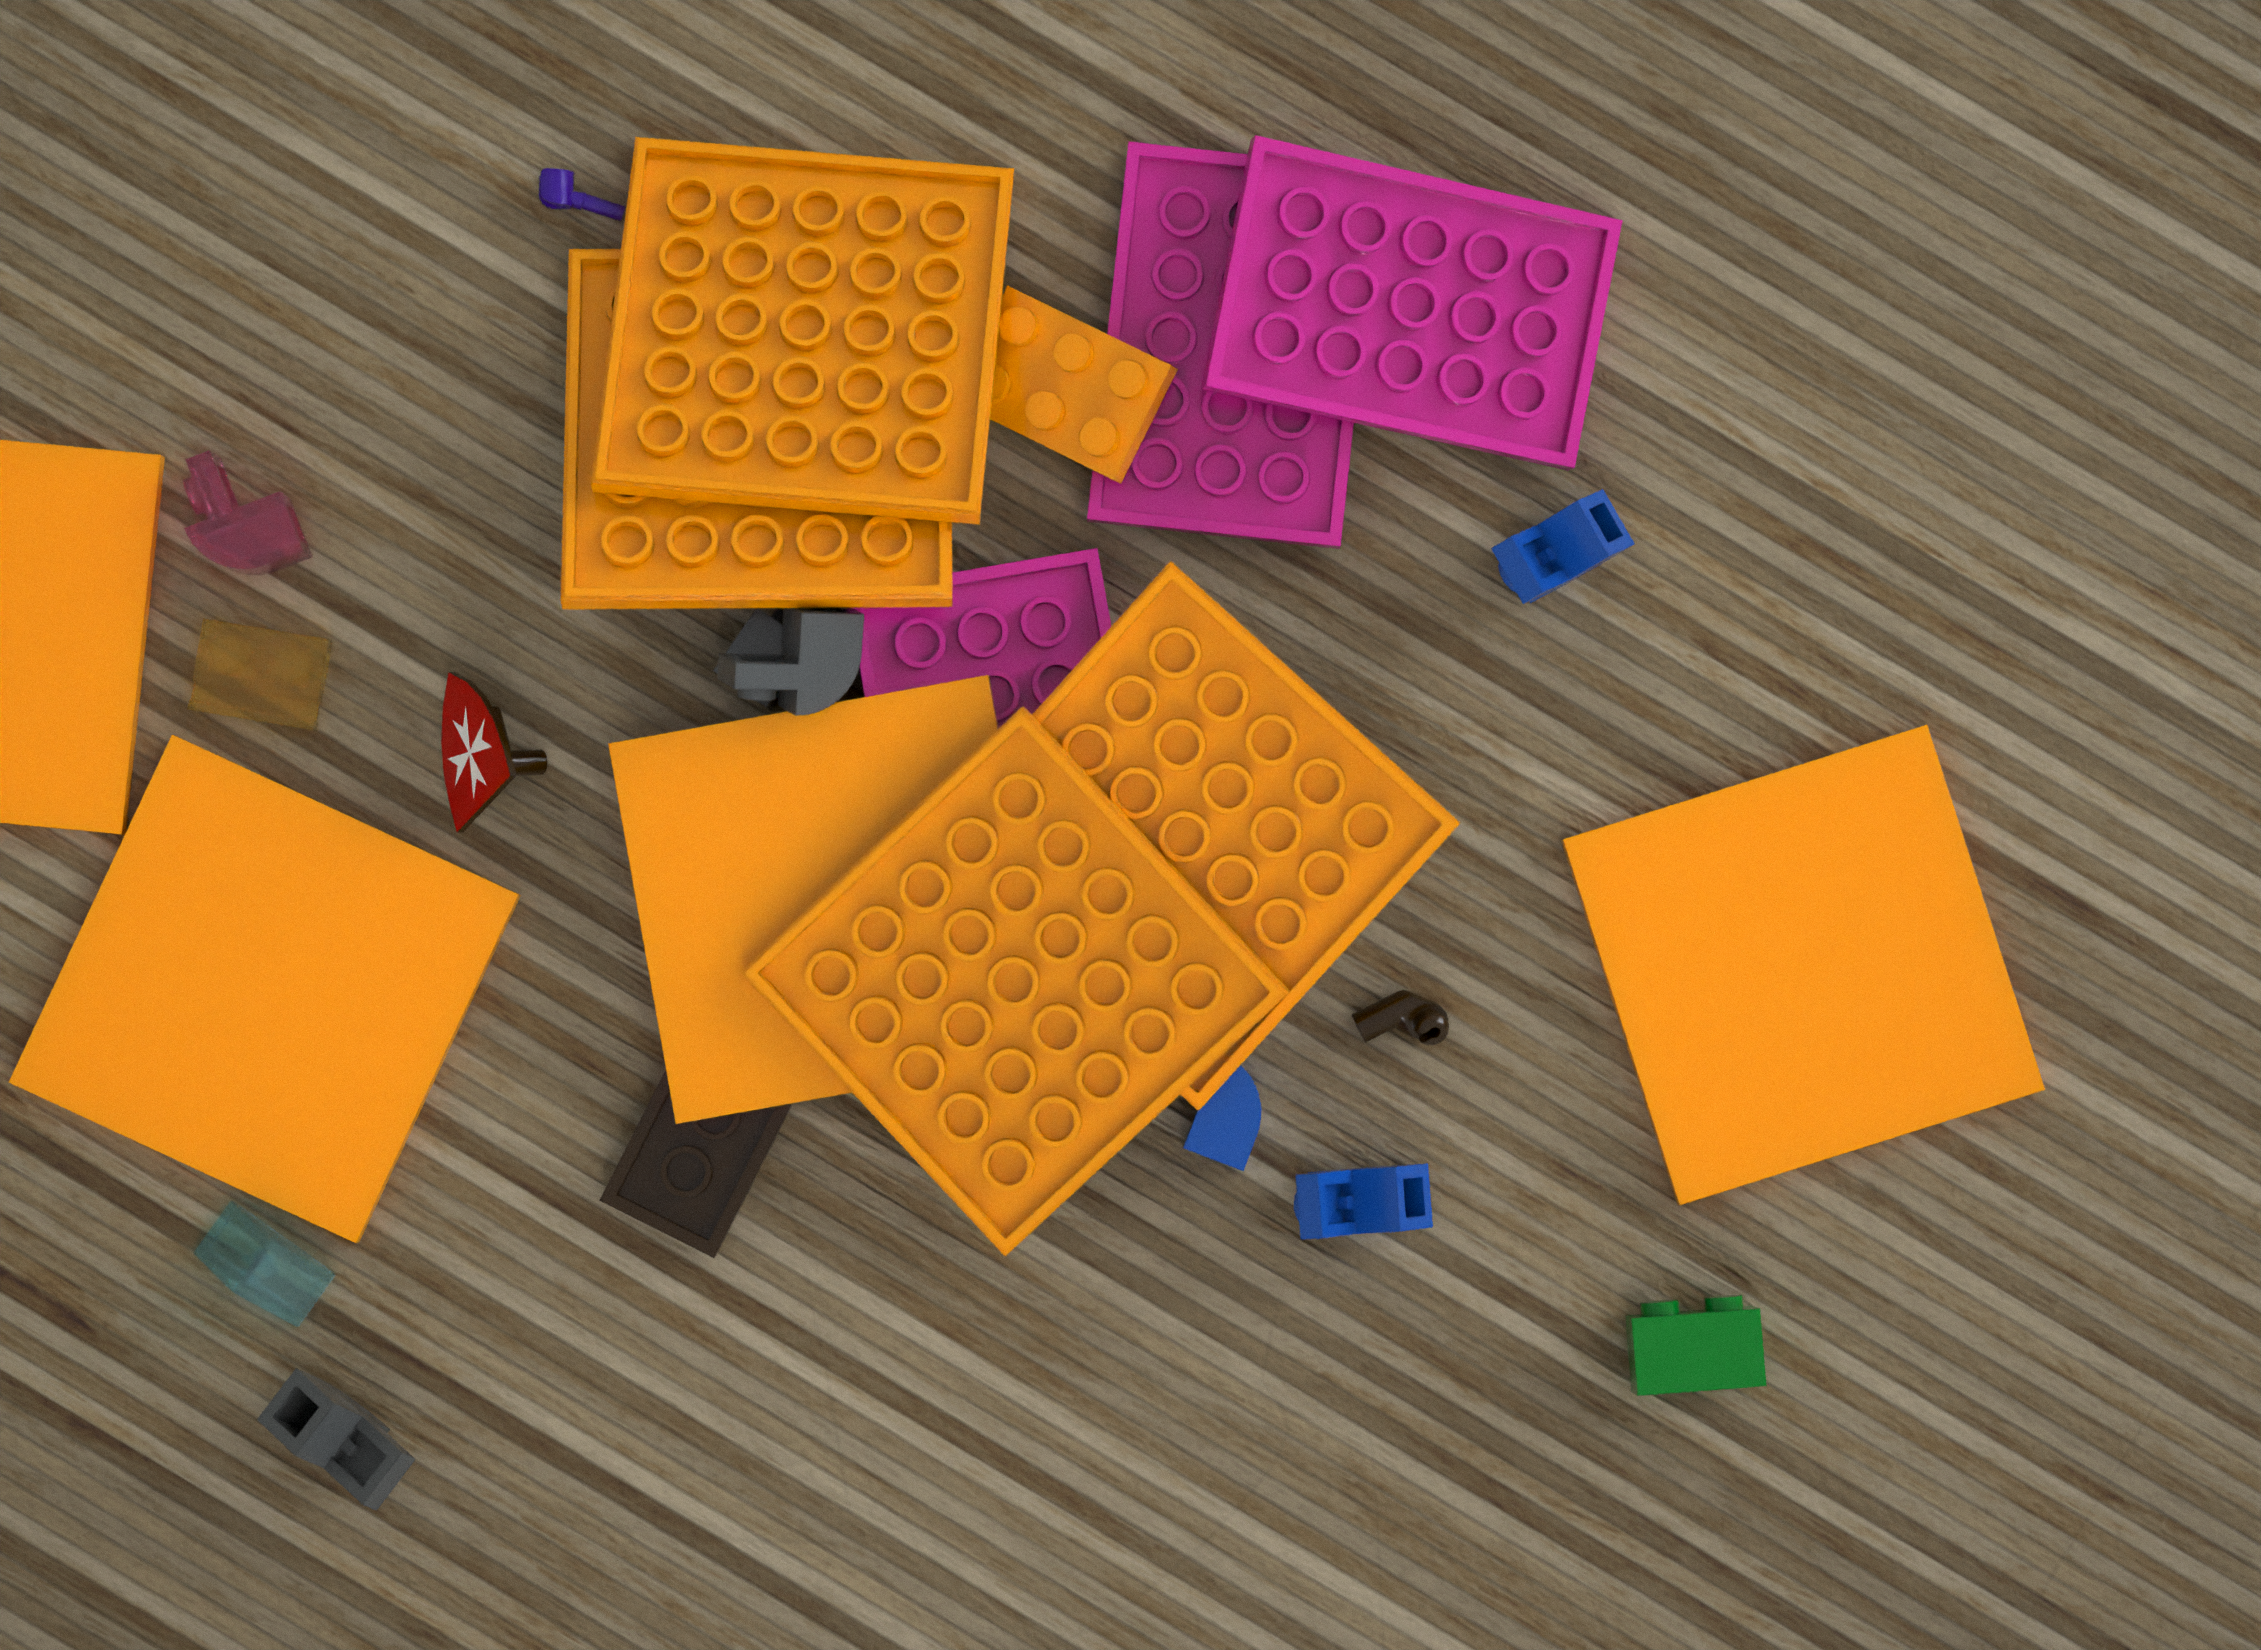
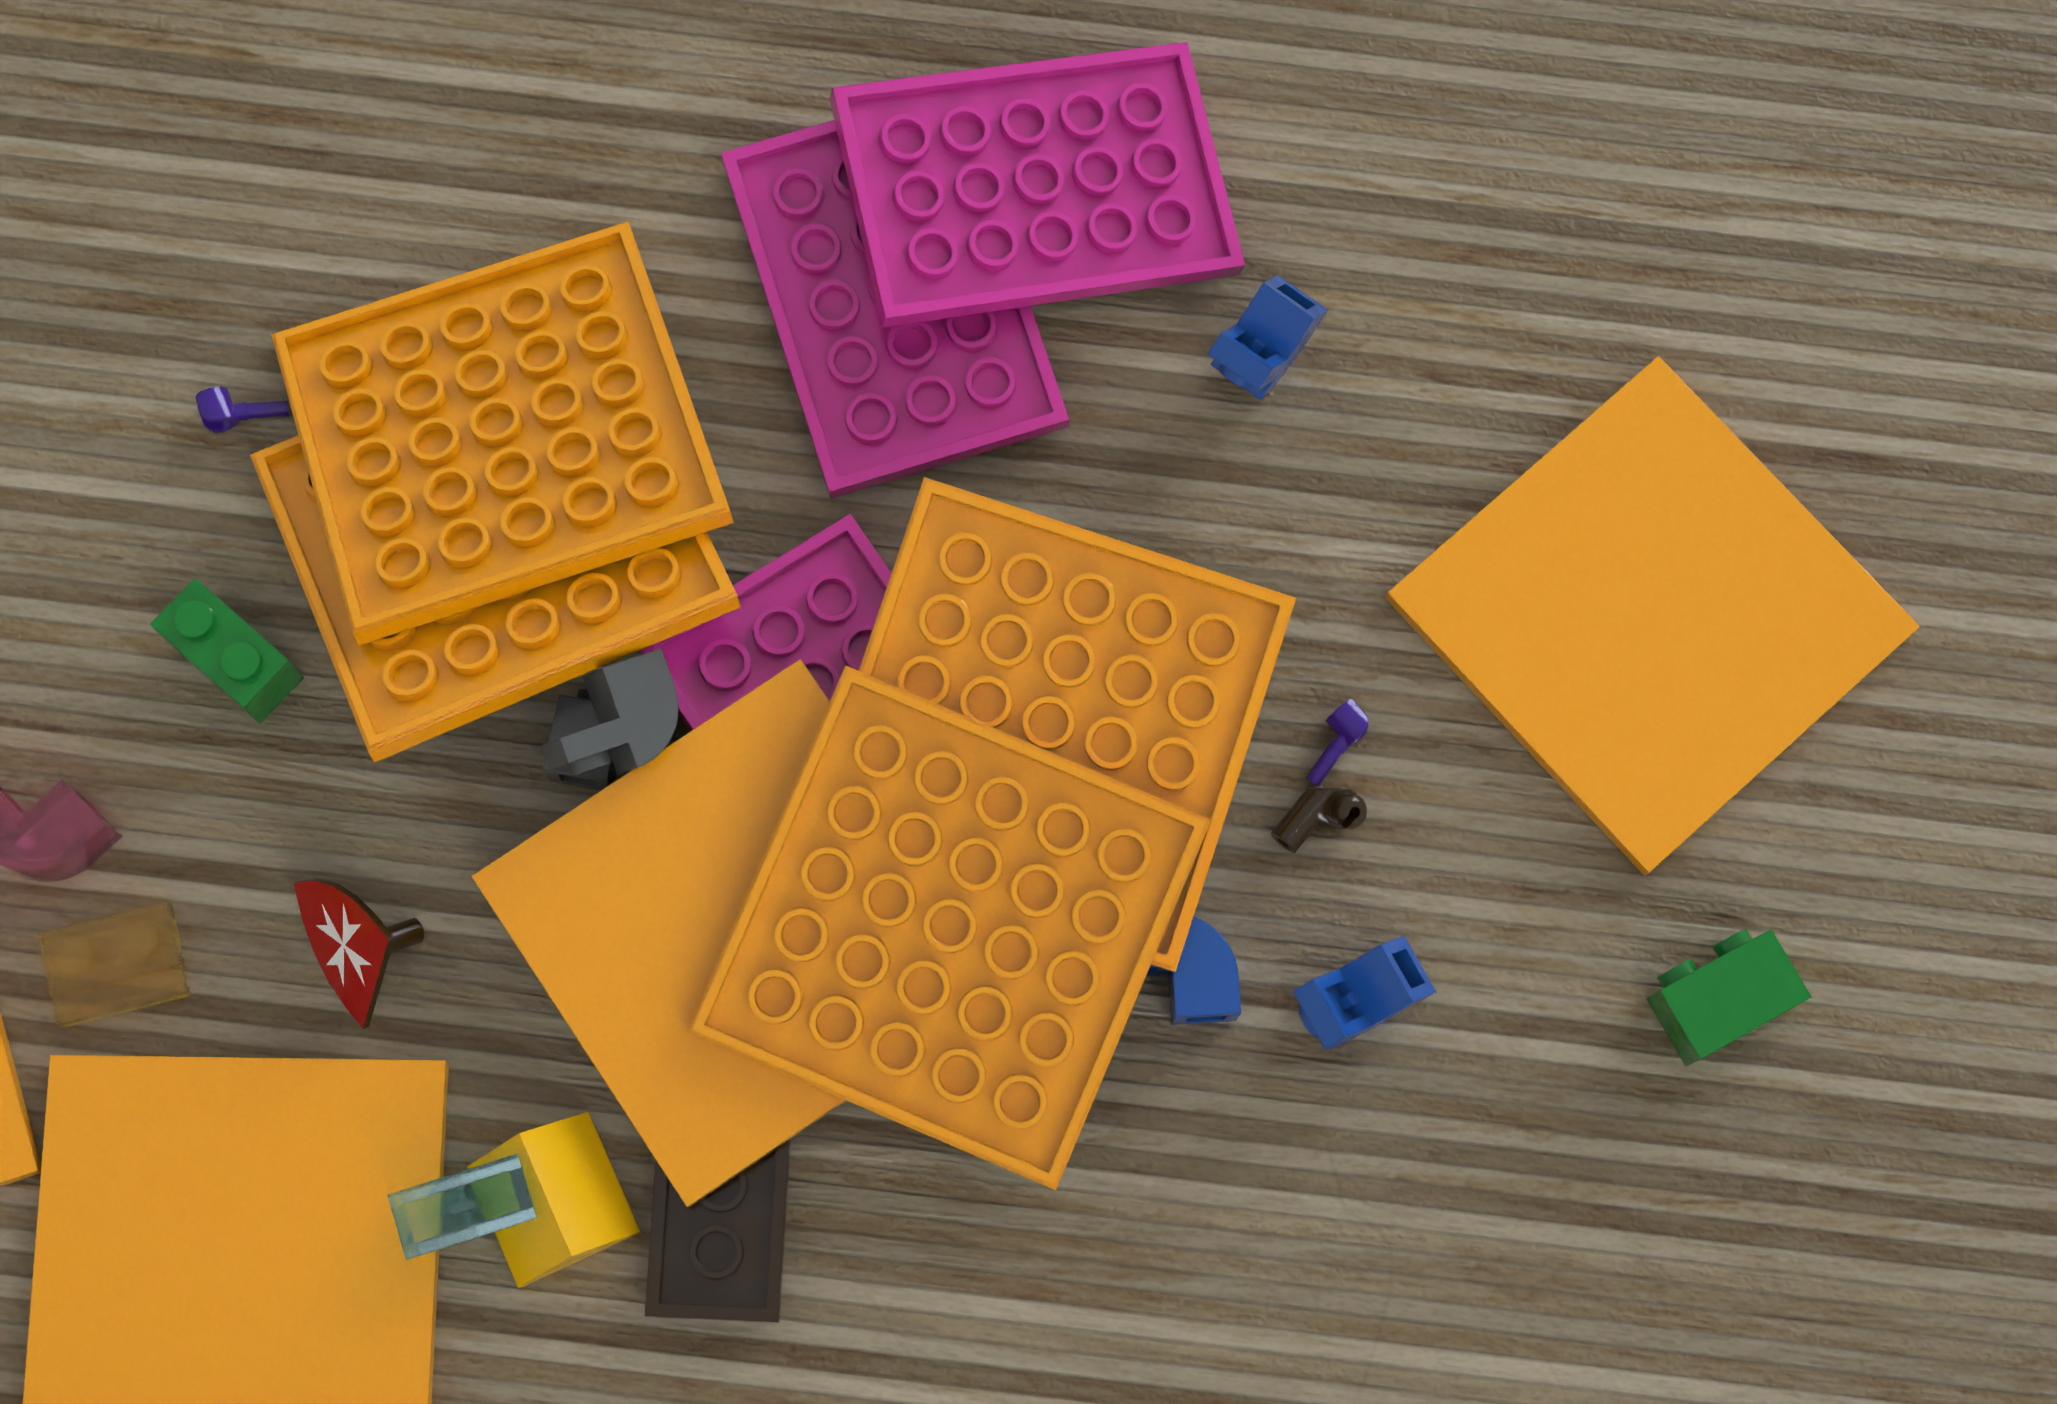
camera: 30 degrees left, 10 degrees down
(474, 430) = (227, 650): none -> green brick
(479, 1036) = (462, 1206): none -> clear light blue slope
(563, 1059) = (574, 1198): none -> yellow slope
(1074, 386) = (767, 379): light orange plate -> none
(1470, 947) = (1350, 725): none -> dark purple hand

